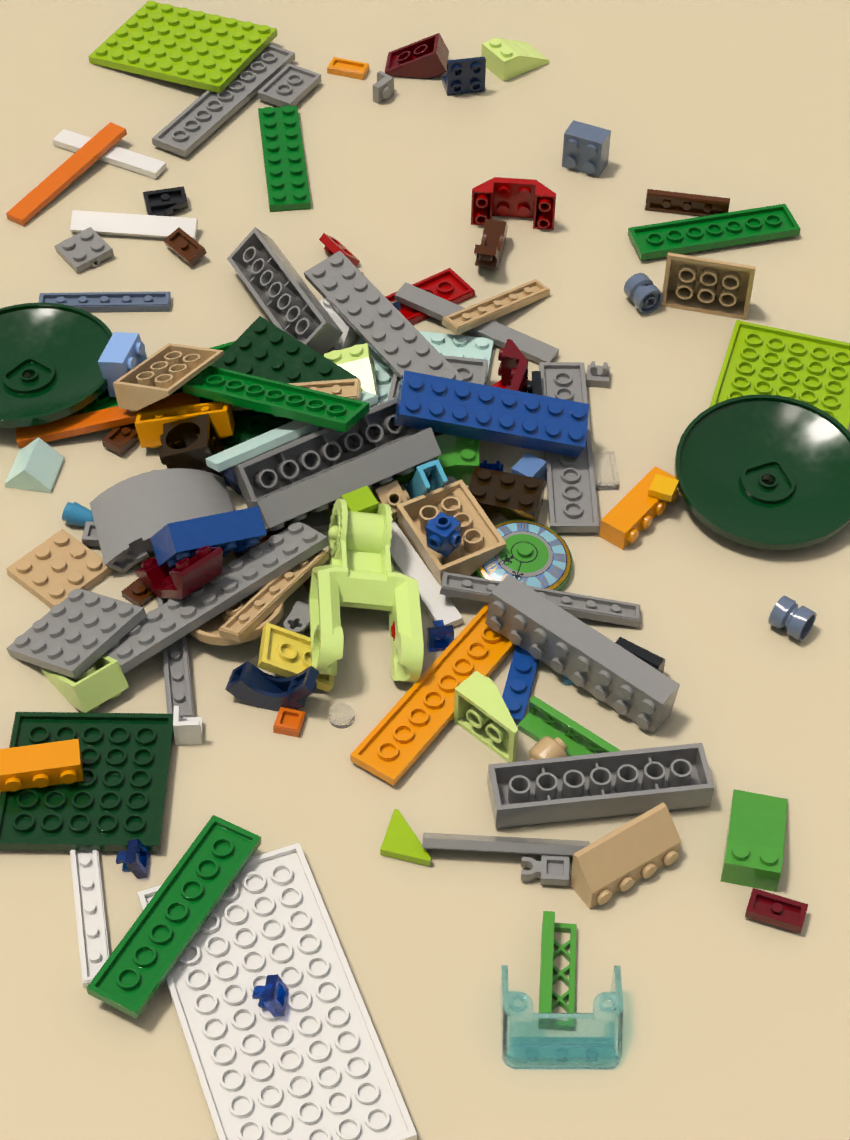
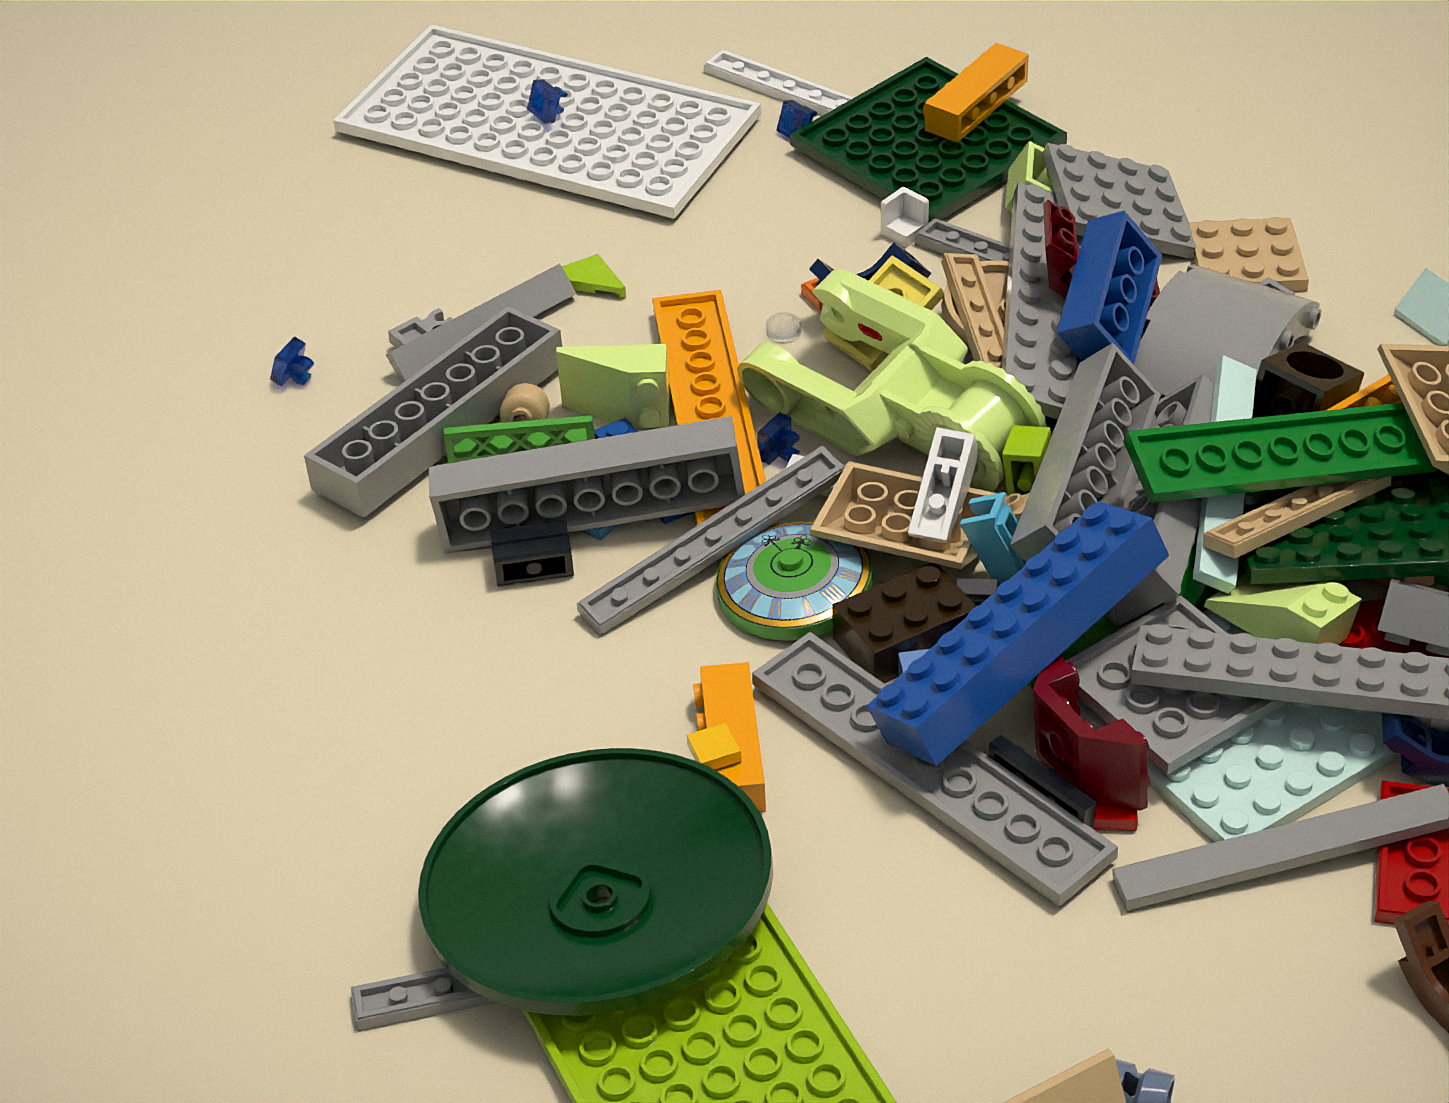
camera: 140 degrees right, 5 degrees down
(76, 514) = (1324, 292): dark azure cone -> none
(174, 917) = (702, 101): green plate -> none
(416, 507) = (944, 485): none -> white slope
(443, 534) = (881, 468): blue brick -> none
(495, 307) = (1296, 892): tan tile -> none
(547, 967) = (341, 273): bright green fence -> none
(561, 1038) = (246, 245): clear light blue windscreen -> none
(598, 375) = (1025, 909): light grey tile -> none
(605, 471) = (842, 773): clear tile -> none
(625, 856) = (347, 372): tan slope -> none
(648, 904) = (292, 363): none -> clear blue tile
(755, 840) = (231, 481): bright green slope -> none
(776, 910) = (155, 438): dark red plate -> none
(795, 619) = (375, 729): sand blue wheel -> none

